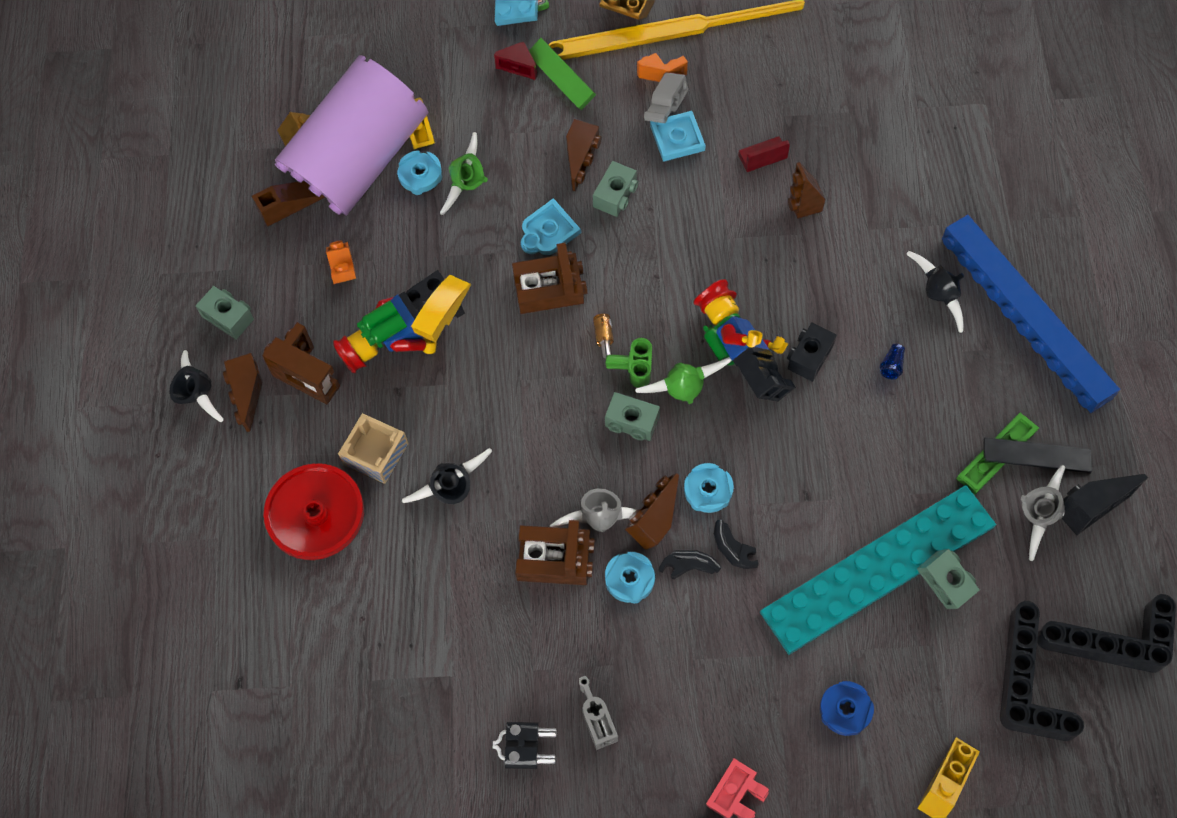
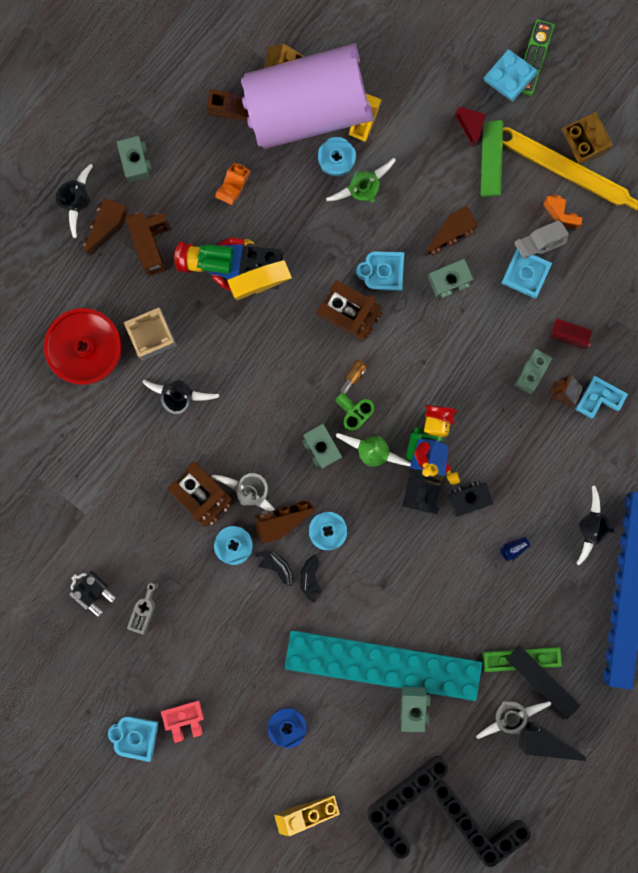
camera: 40 degrees right, 20 degrees up
(761, 204) = (532, 371): none -> sand green brick
(835, 178) = (597, 393): none -> medium azure plate

